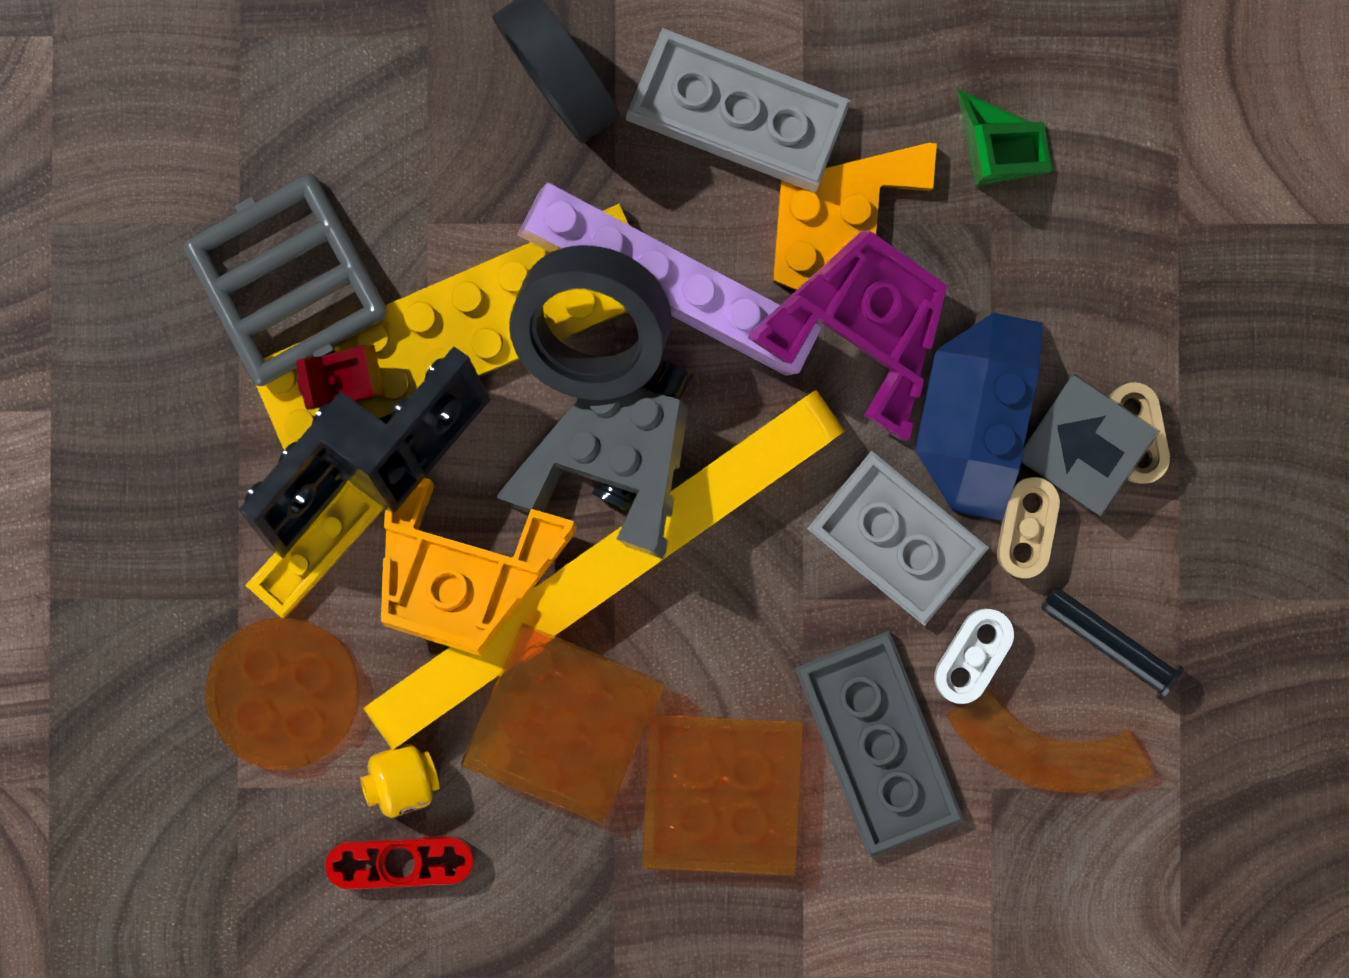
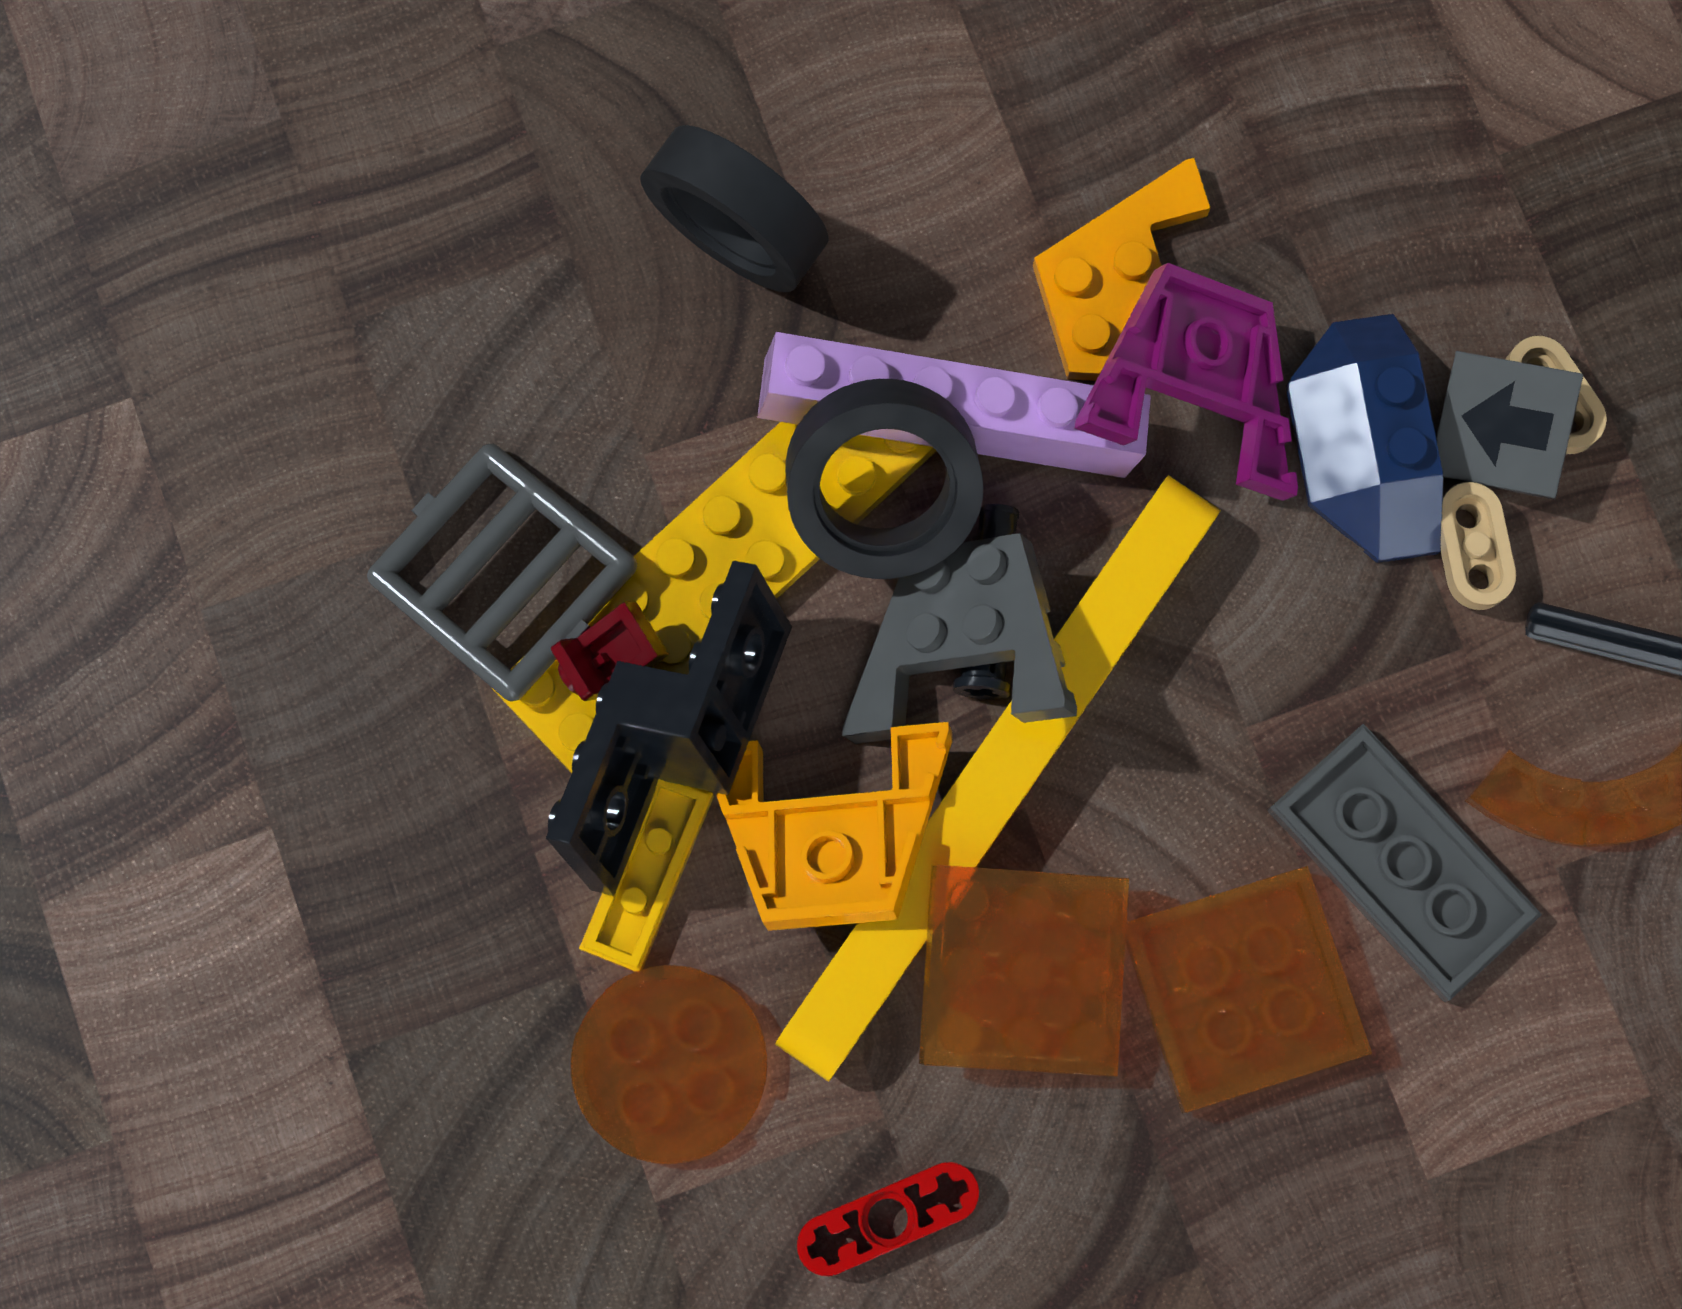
camera: 25 degrees left, 10 degrees down
(400, 780) = (852, 1115): yellow head -> none
(738, 110) = (957, 199): light grey tile -> none
(897, 538) = (1328, 615): light grey tile -> none
(977, 658) = (1472, 718): white plate -> none
(1002, 143) = (1266, 136): green slope -> none

